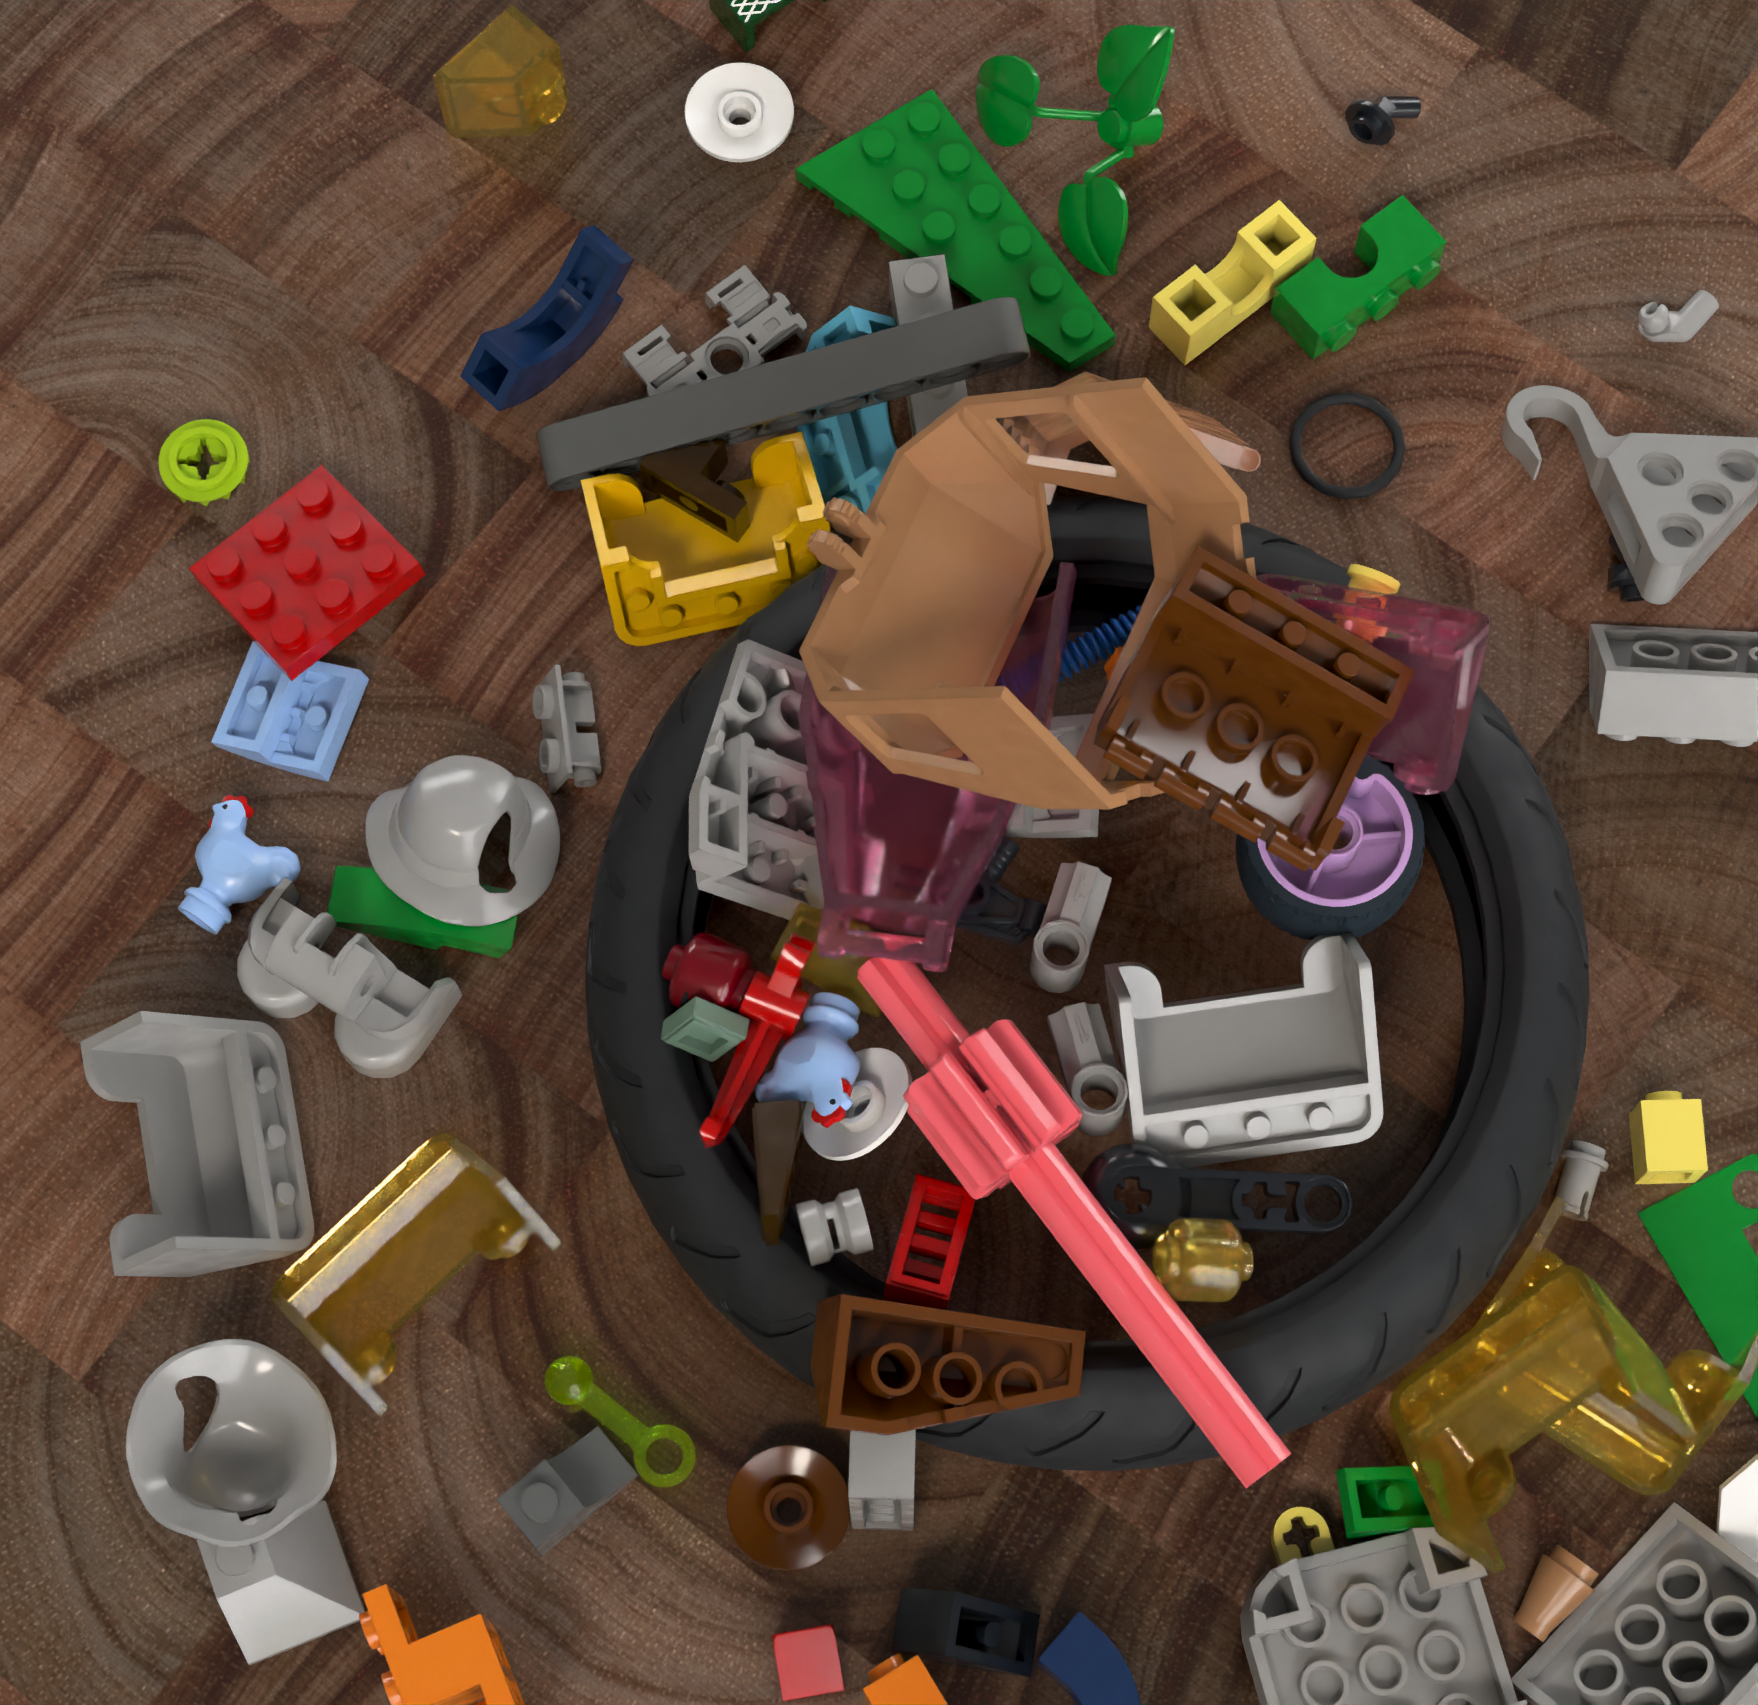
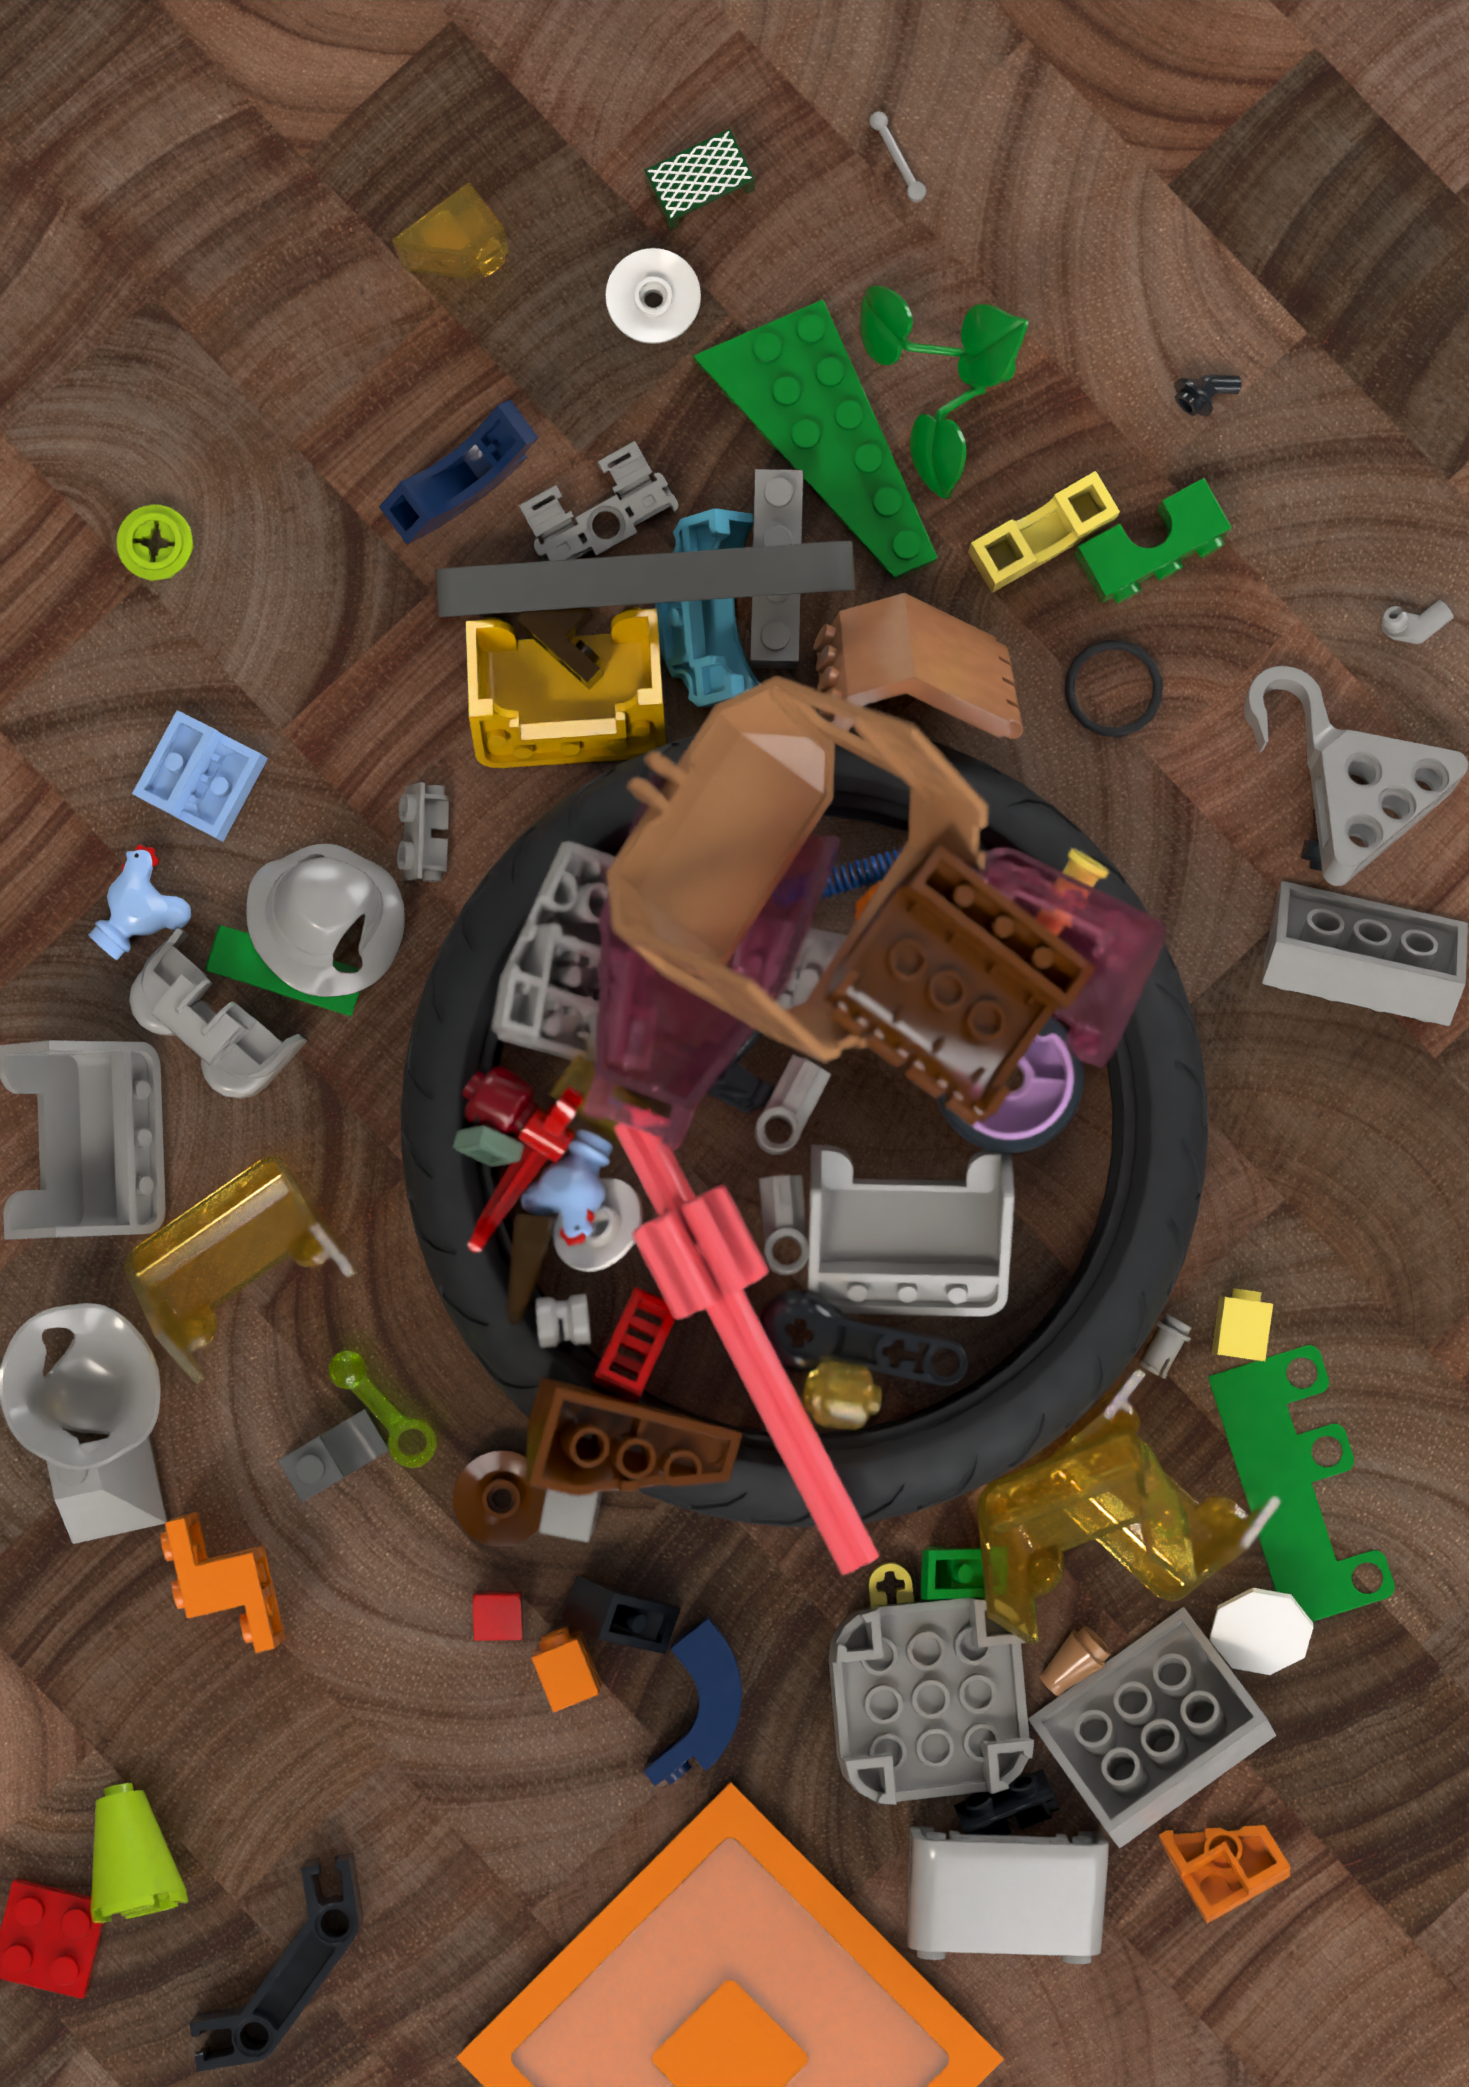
camera: 10 degrees right, 15 degrees up
(307, 572) = (228, 660): red plate -> none

